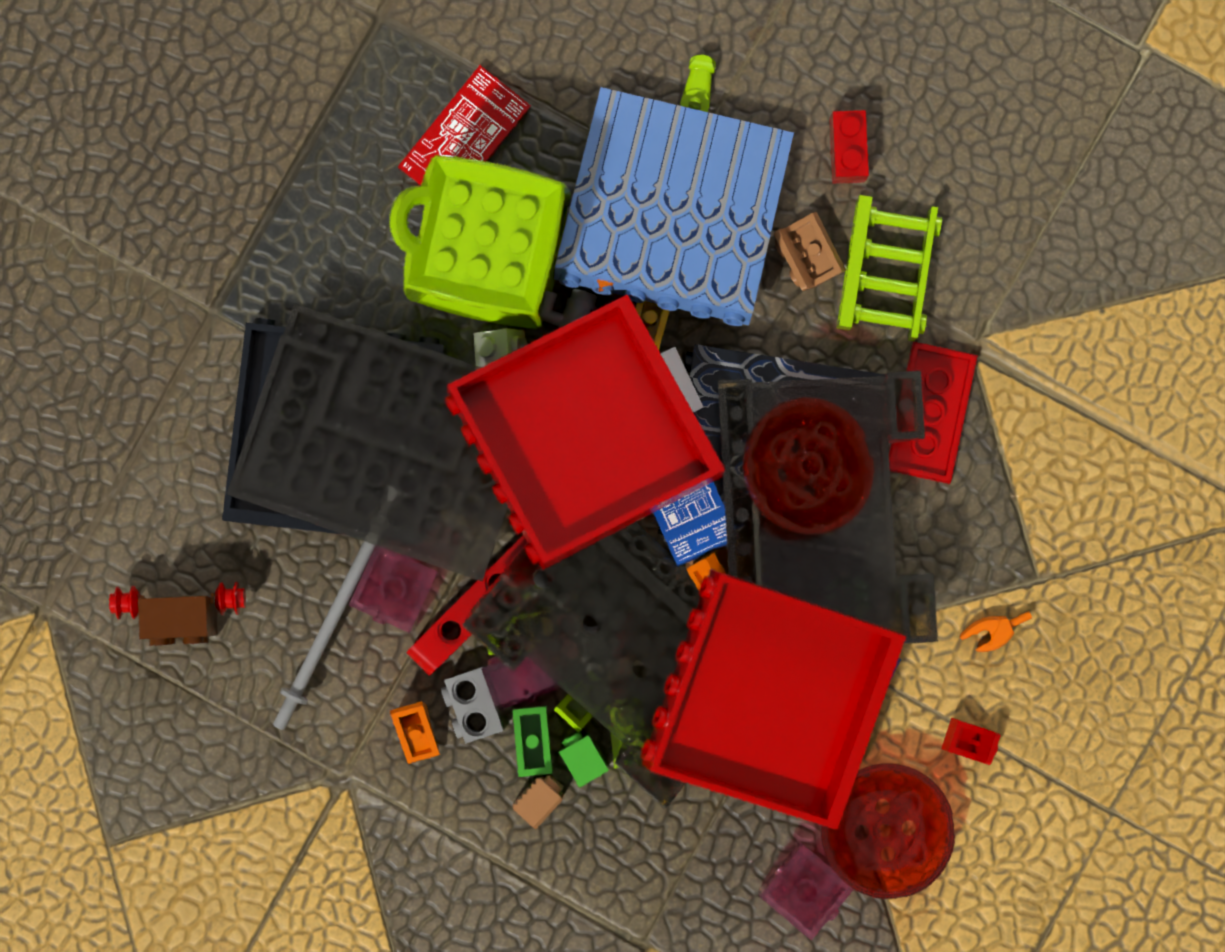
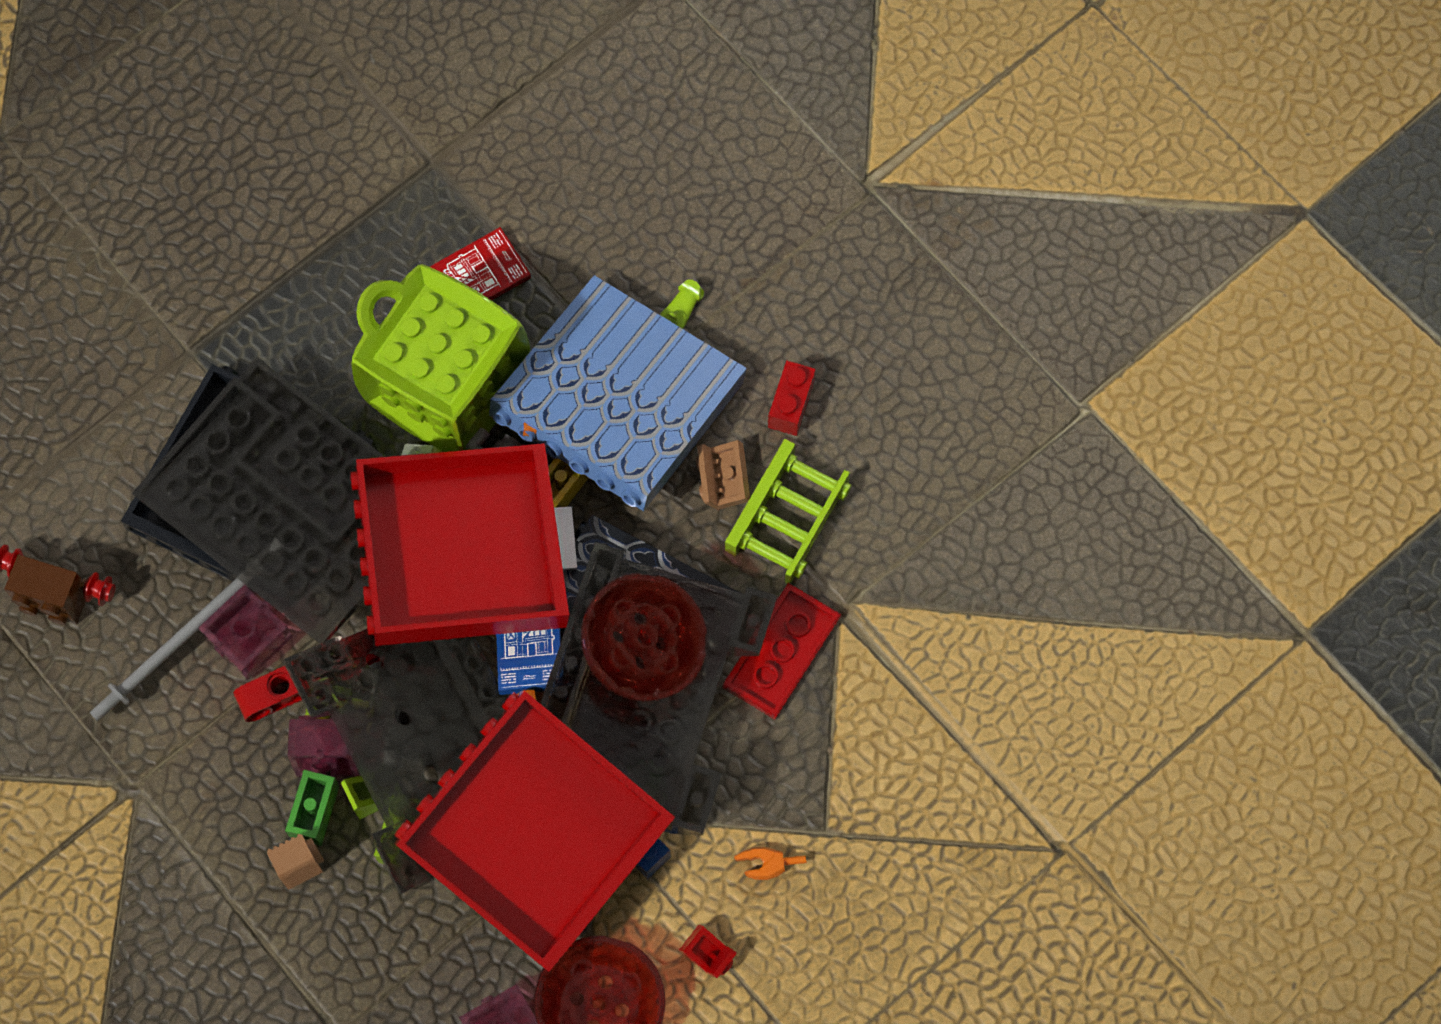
camera: 20 degrees right, 15 degrees down
(415, 732) = (212, 762): orange slope -> none
(479, 703) = (270, 760): light grey brick -> none
(583, 758) = (350, 838): bright green brick -> none

